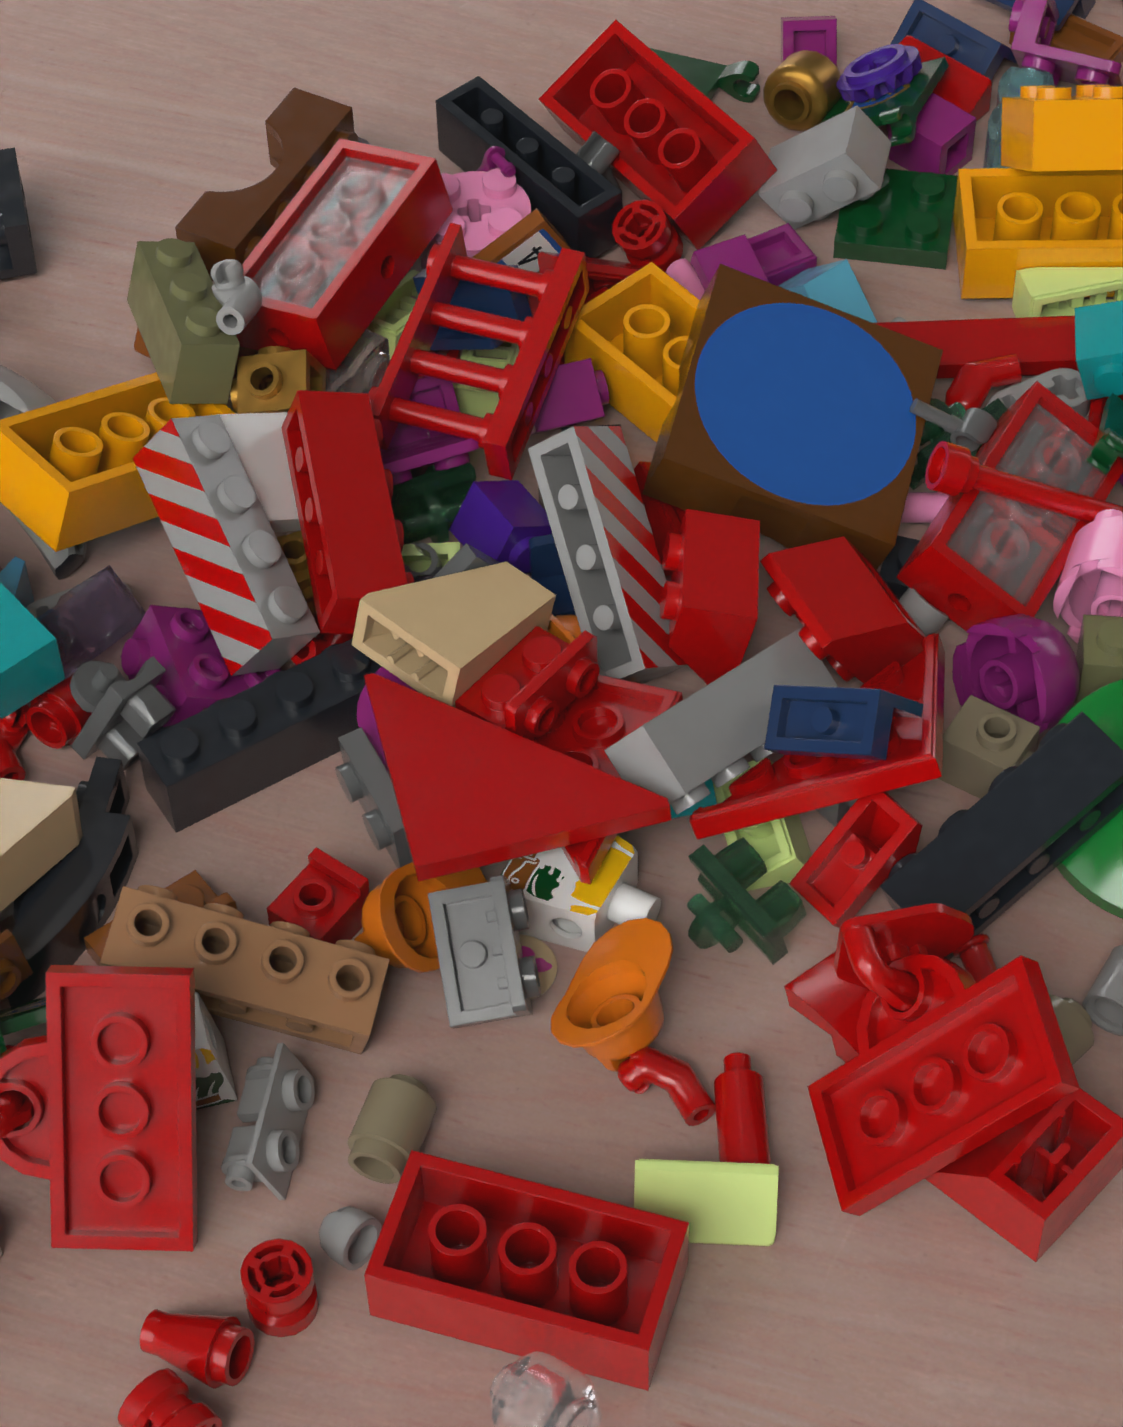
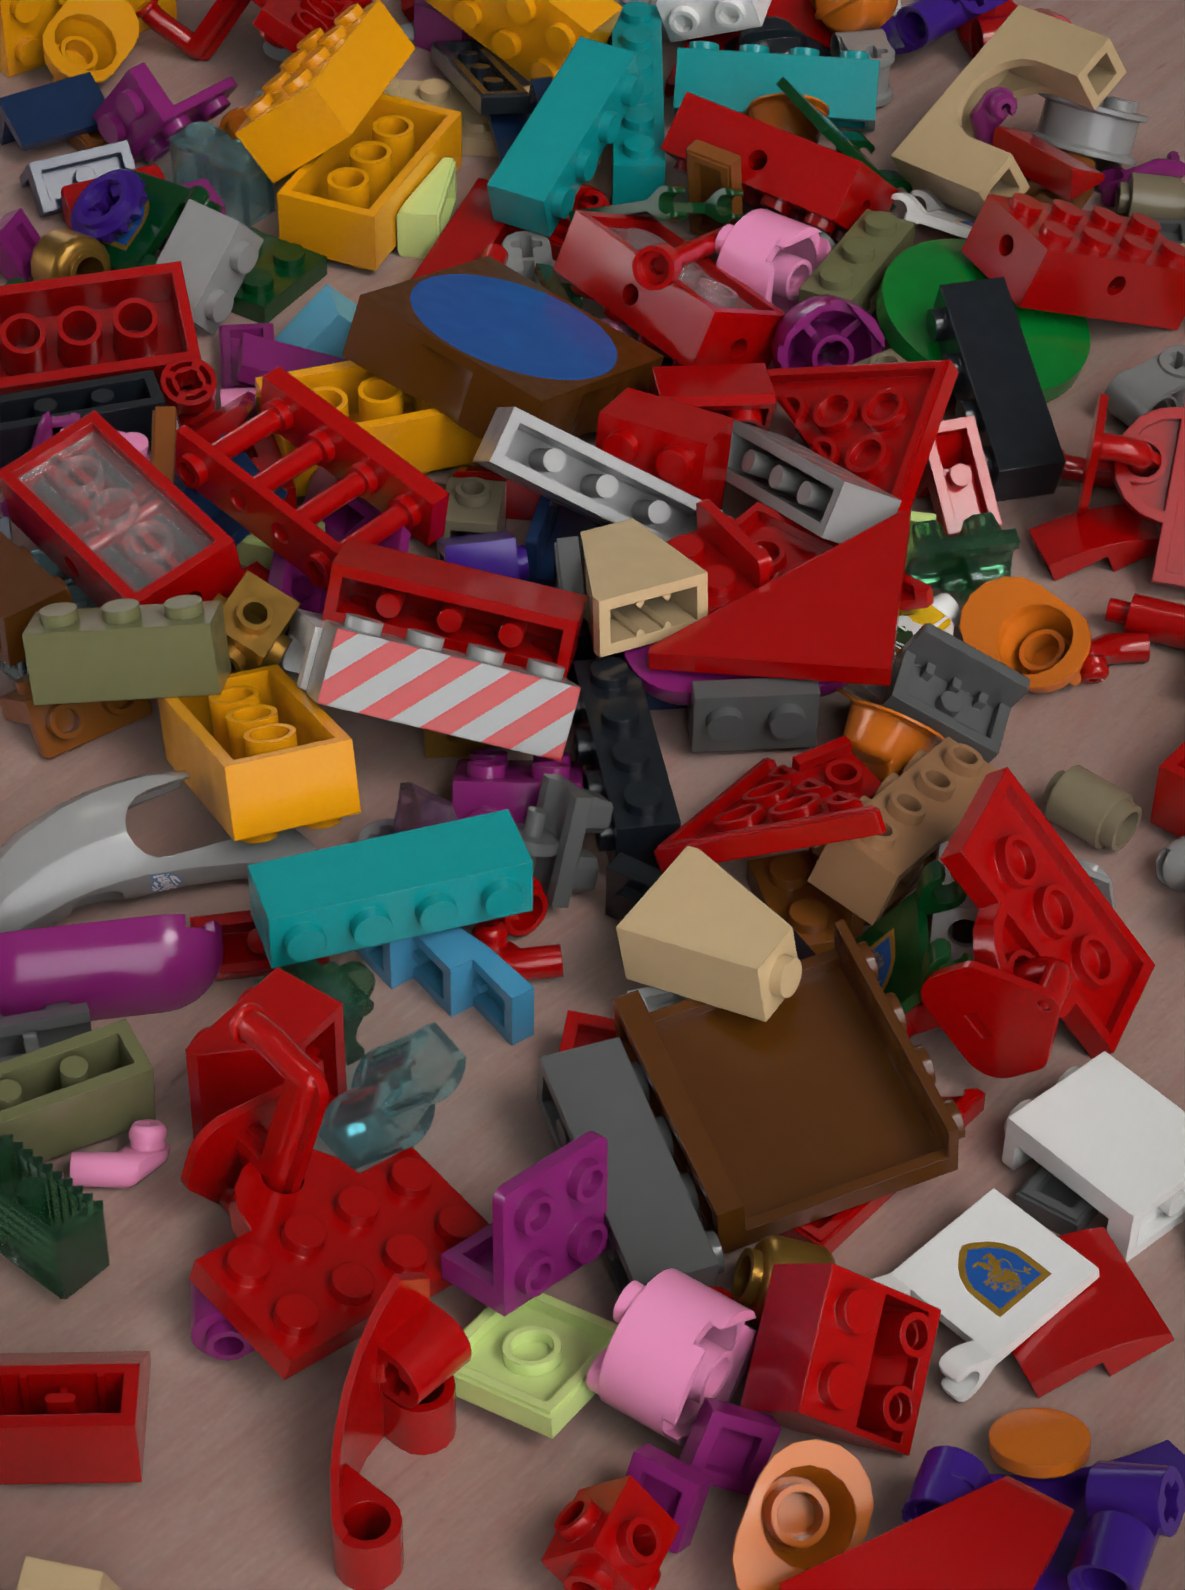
camera: 70 degrees left, 10 degrees down
(175, 844) = (771, 813): none -> red tile
(236, 294) = (167, 579): light grey arm -> none
(599, 156) = (90, 369): dark grey hand -> none
(834, 721) = (866, 411): dark blue panel -> none
(970, 431) = (565, 278): dark grey hand -> none

